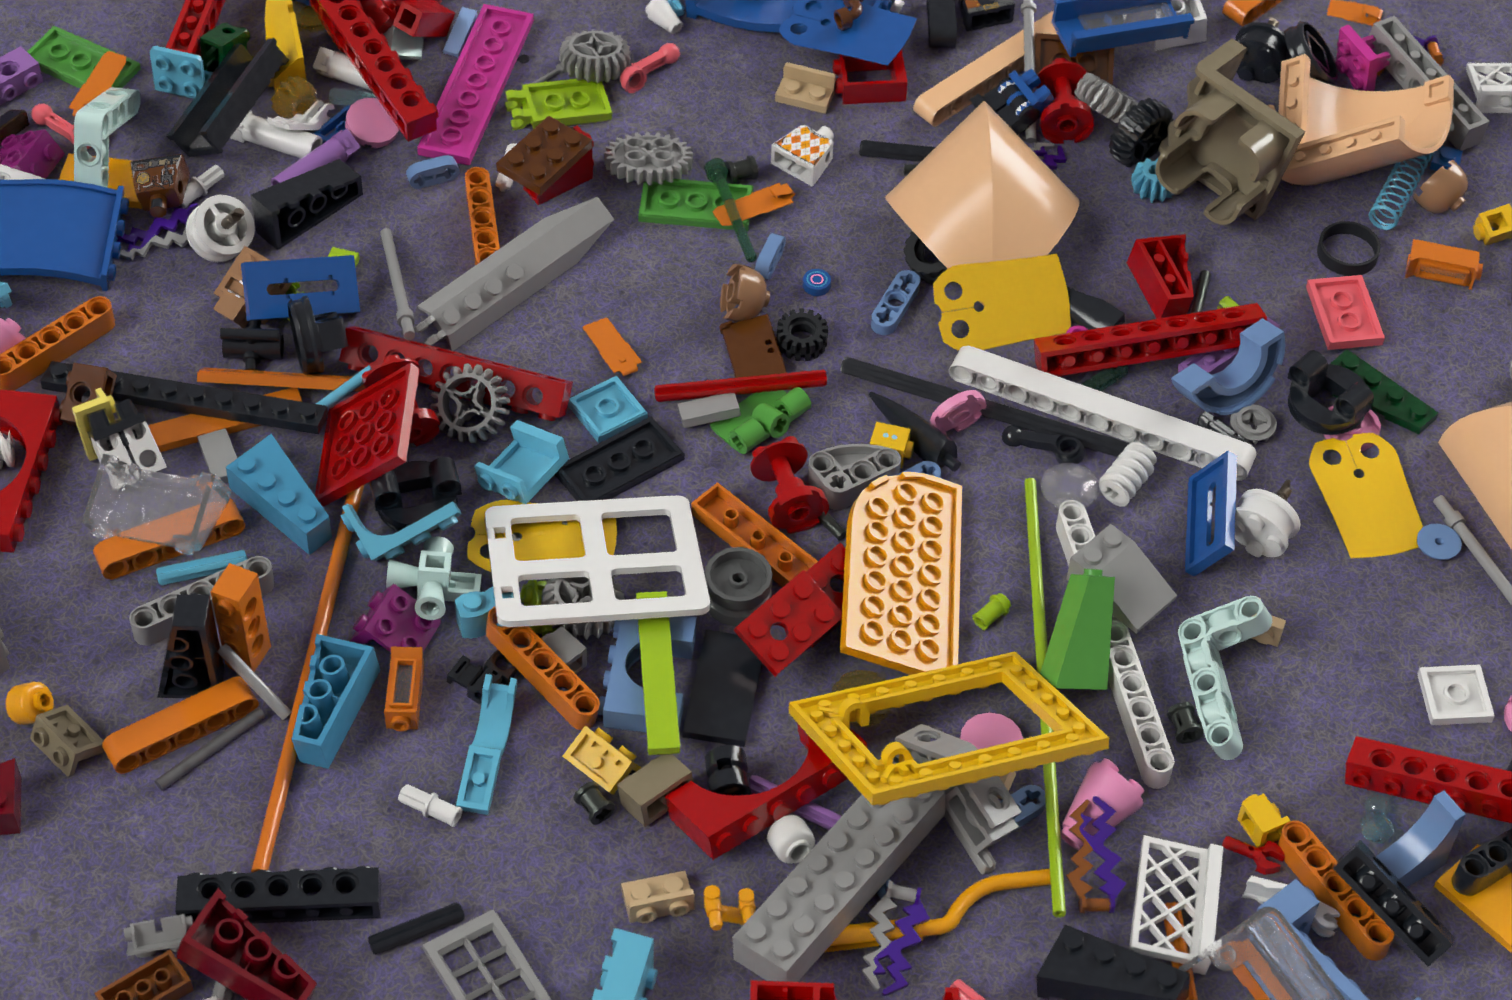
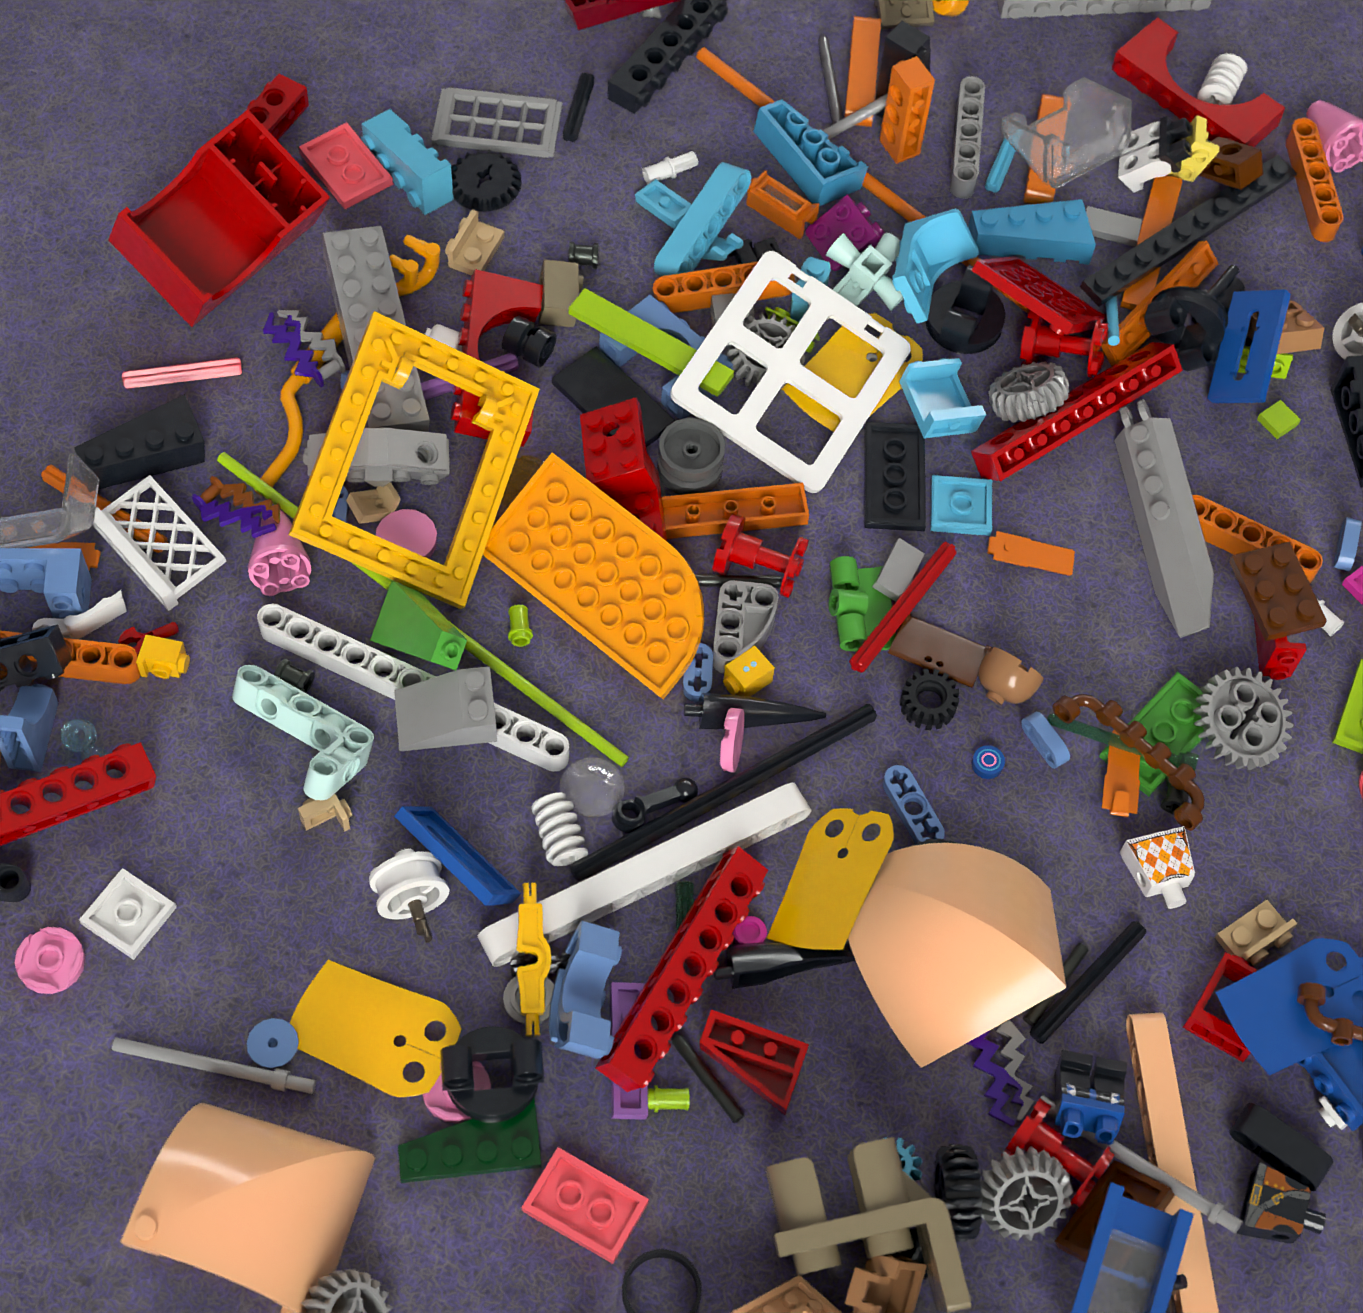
camera: 125 degrees right, 10 degrees up
(404, 314) = (1164, 405): light grey bar -> none
(484, 723) = (703, 220): none -> medium azure beam
(559, 960) = (494, 193): none -> black gear
(601, 760) = (618, 283): yellow bracket -> none
(729, 197) = (1156, 756): none -> reddish brown bar
(1228, 422) = (532, 977): none -> yellow piece

